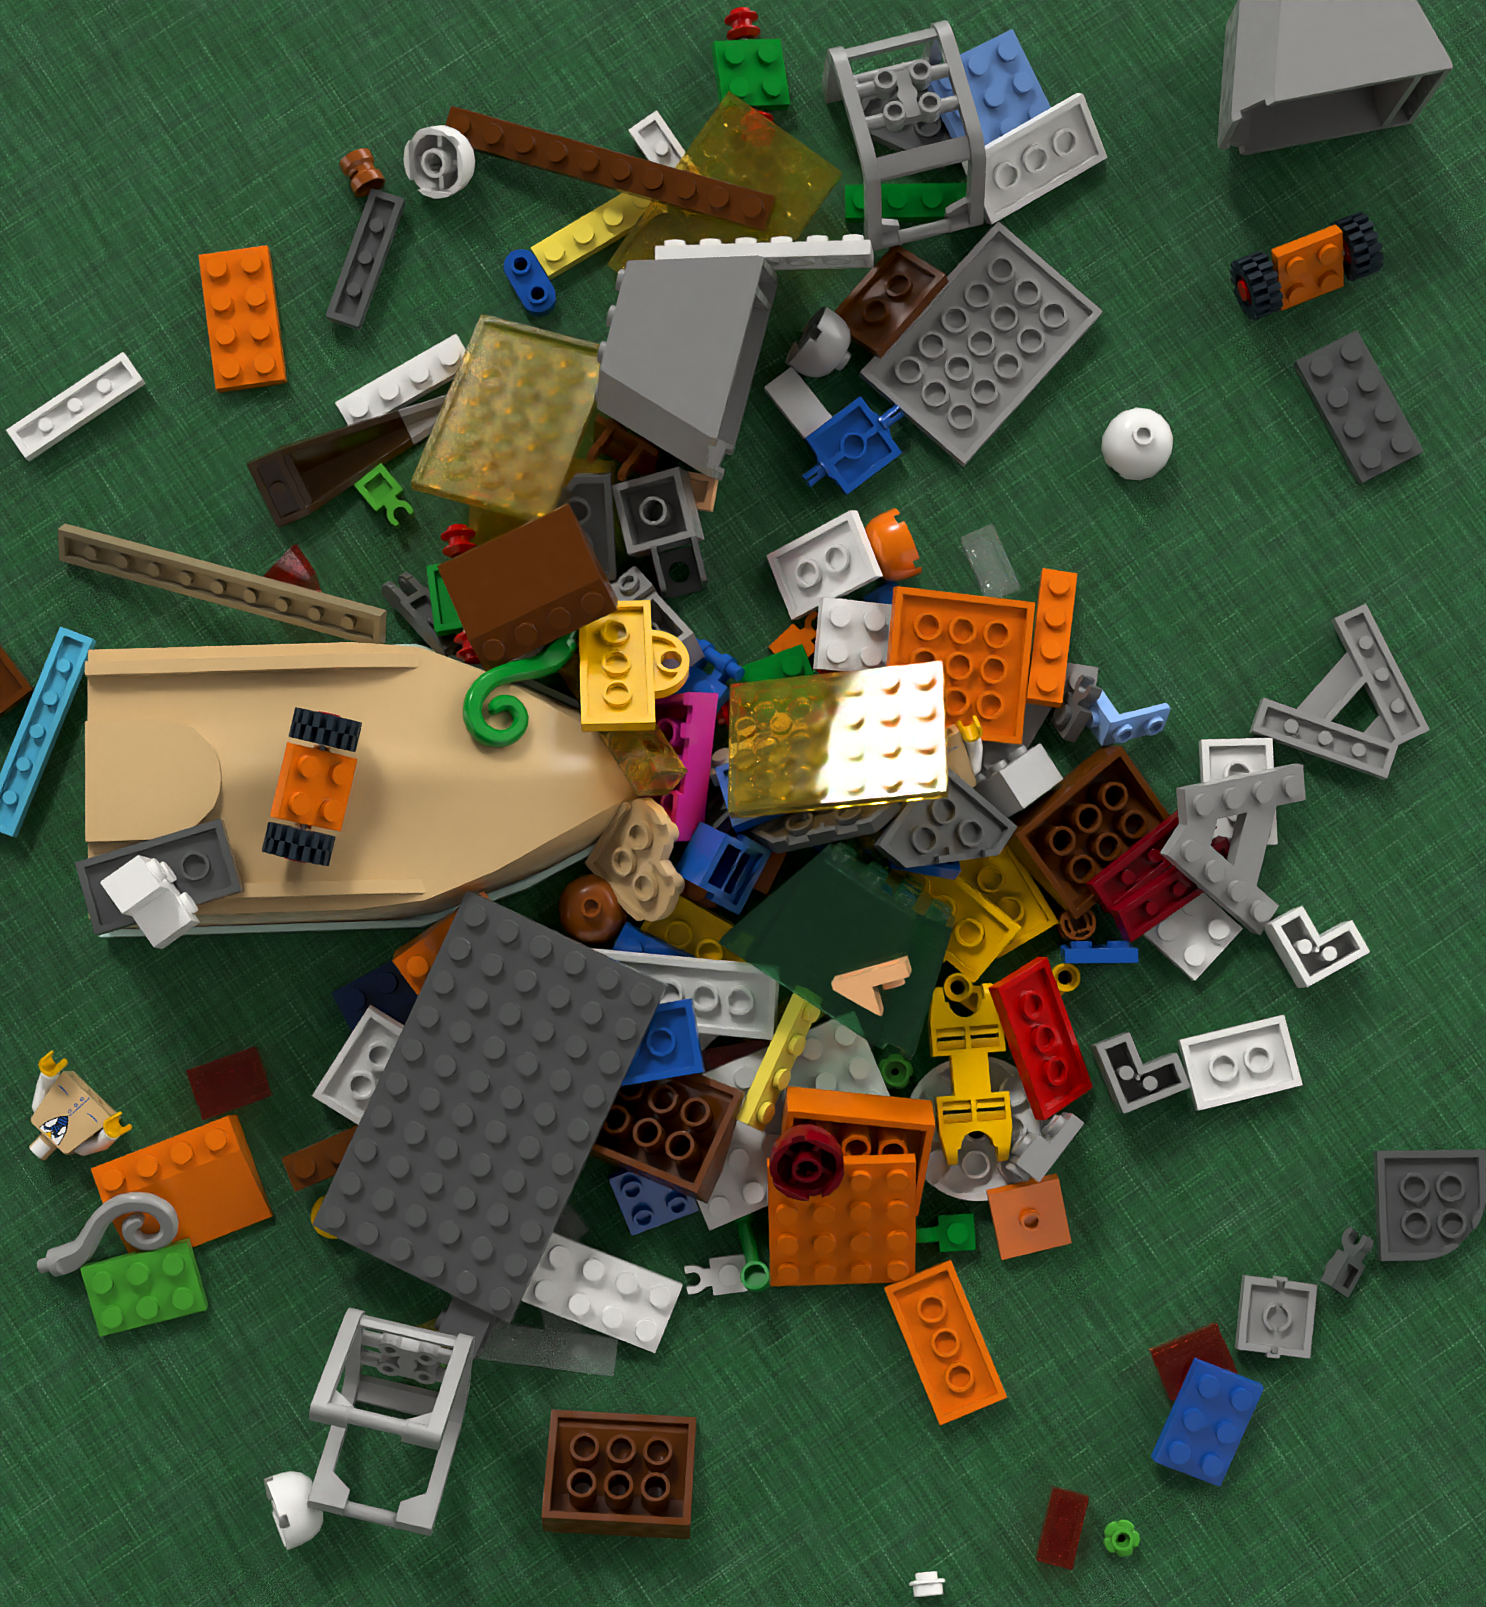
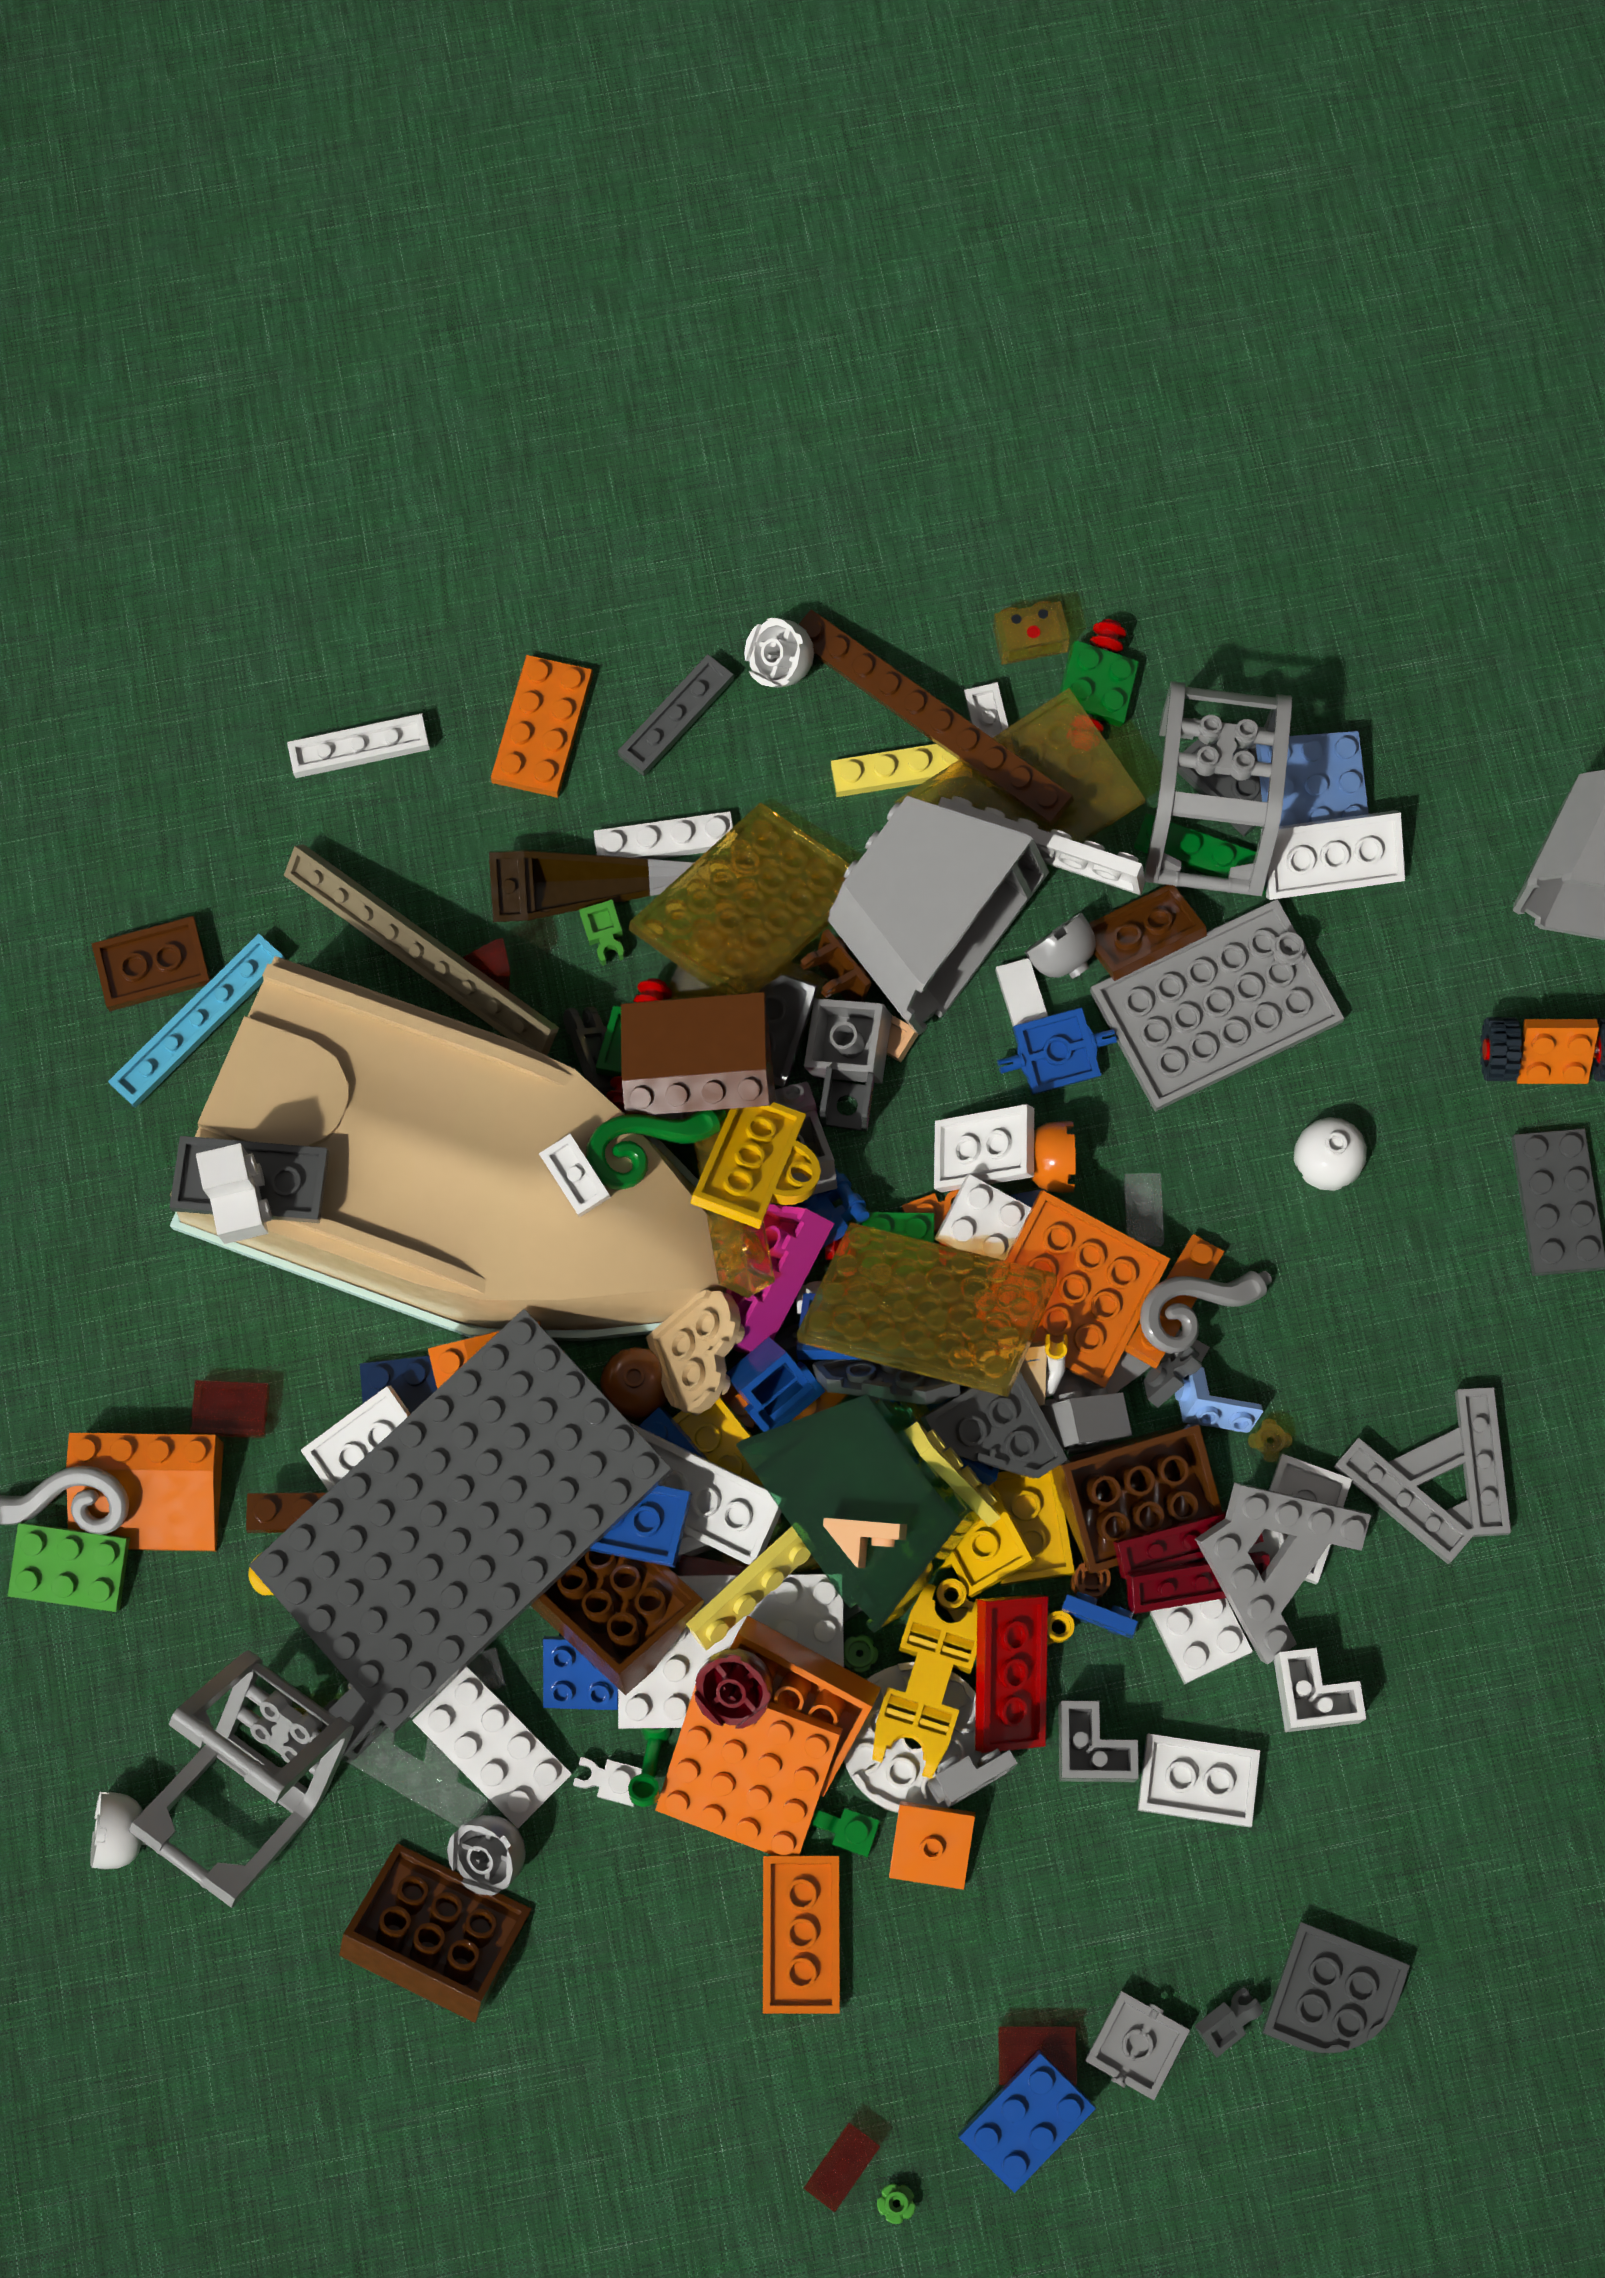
camera: 25 degrees right, 10 degrees down
(71, 1114) = (72, 1377): torso -> none
(312, 787) = (423, 1151): plate -> none
(361, 171) = (704, 635): dark orange wheel -> none
(464, 750) = (575, 1175): none -> white plate
(529, 281) = (817, 790): blue plate -> none
(638, 1389) = (487, 1853): none -> light grey cylinder
(668, 48) = (1031, 632): none -> clear yellow brick
(923, 884) = (948, 1467): none -> light yellow plate
(927, 1584) = (686, 2168): white plate -> none
(1029, 256) = (1290, 940): none -> light grey plate
(1106, 606) = (1236, 1293): none -> light grey plant
(1193, 726) = (1280, 1440): none -> clear yellow plate

